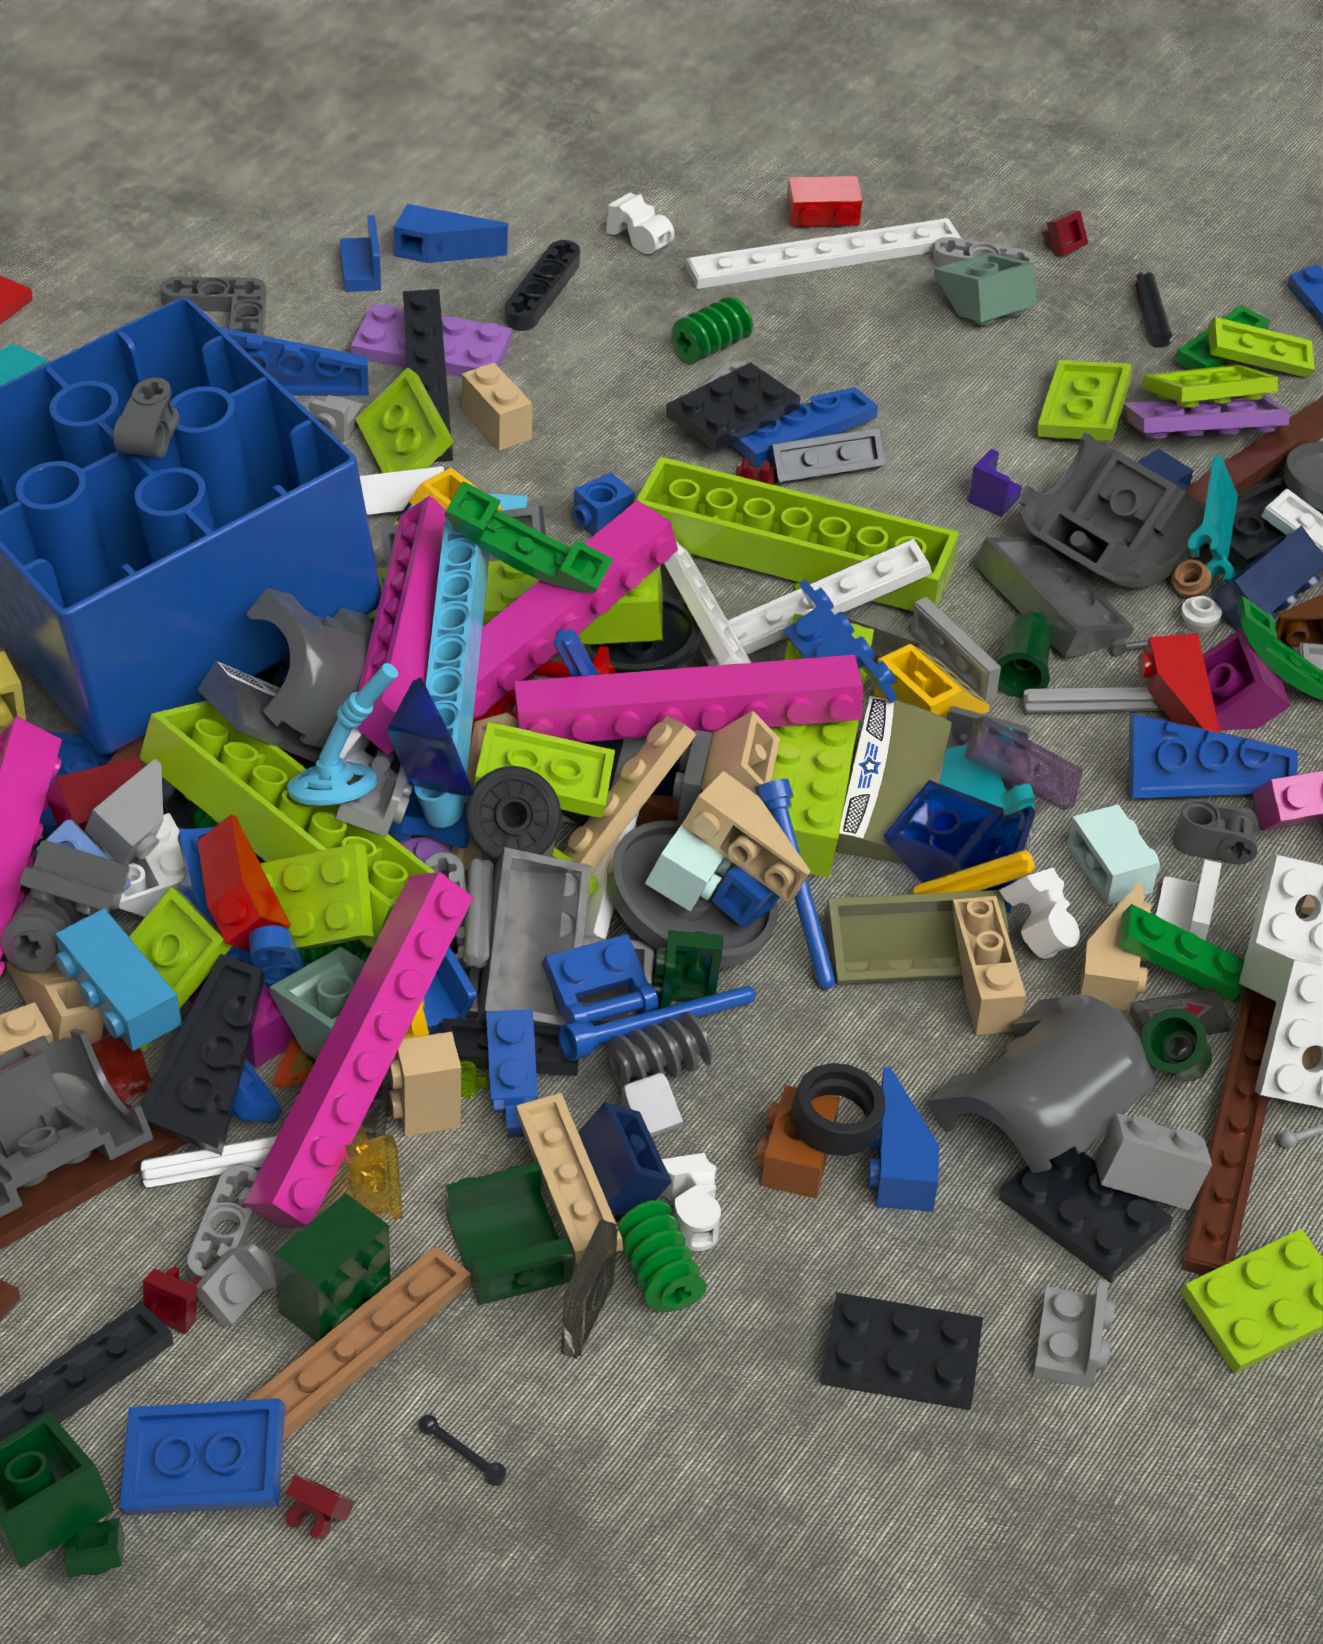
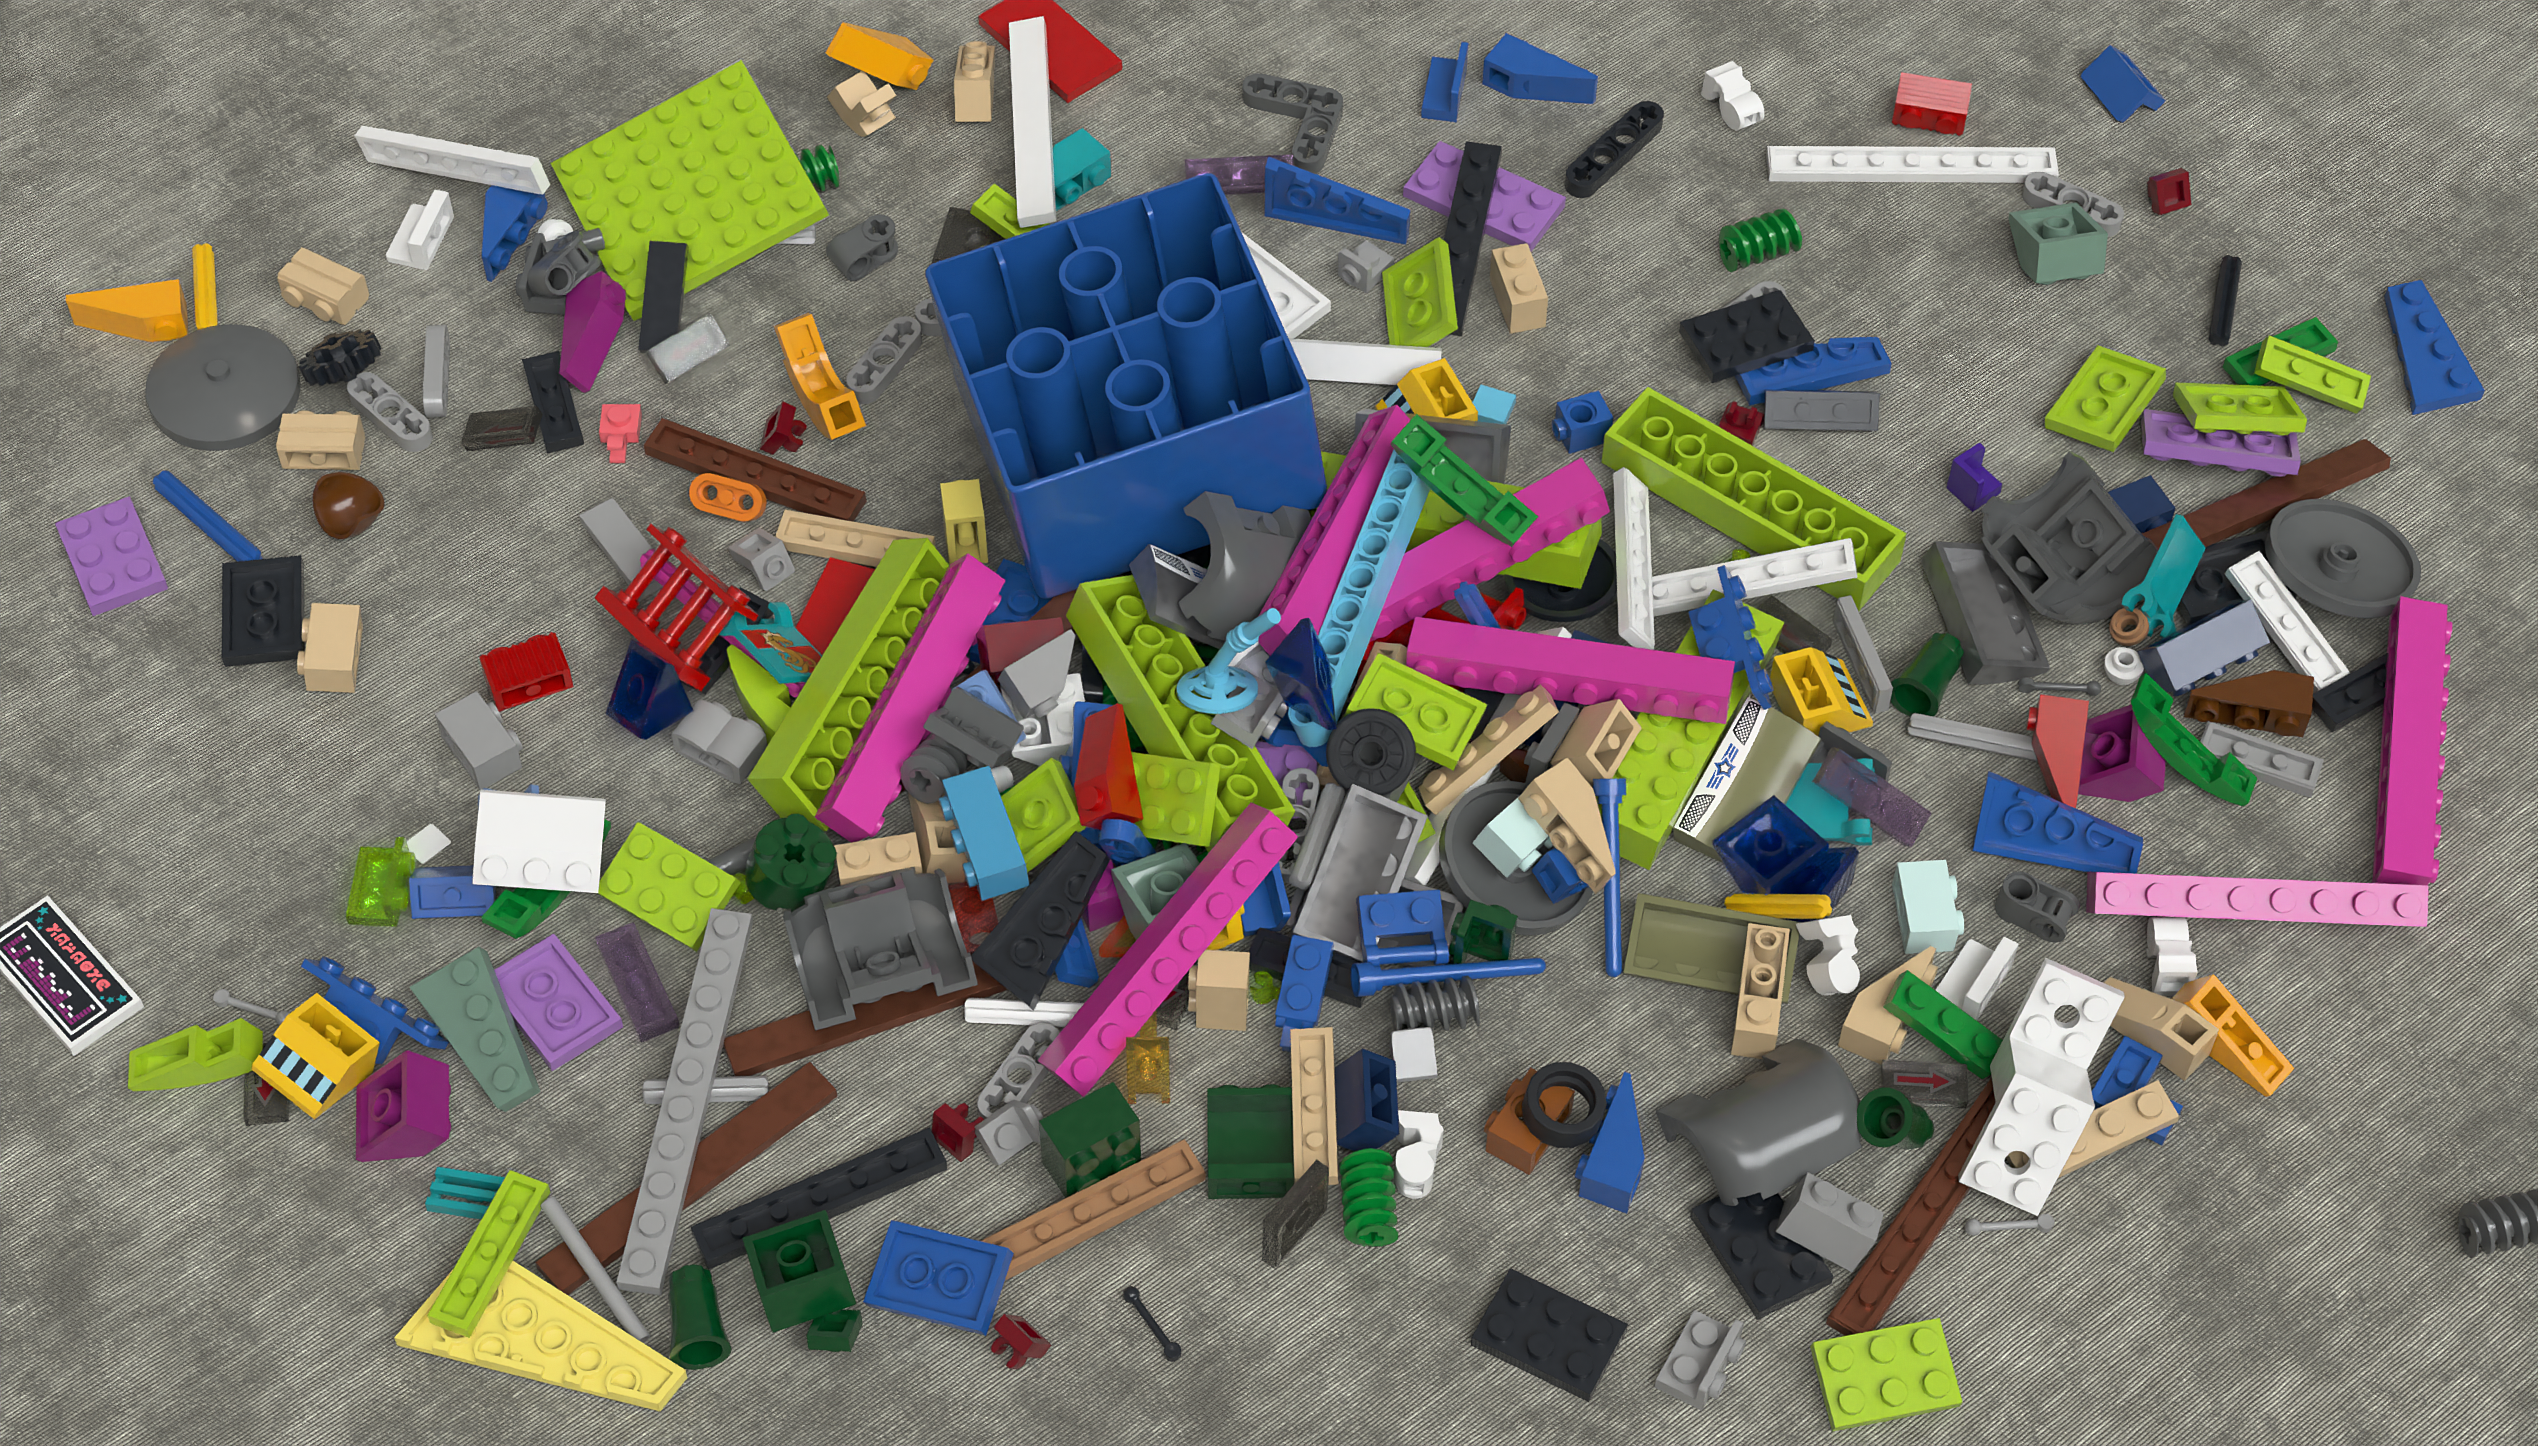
camera: 20 degrees right, 10 degrees up
(147, 420) = (1135, 309): dark grey piece -> none
(984, 162) = (2120, 84): none -> blue panel

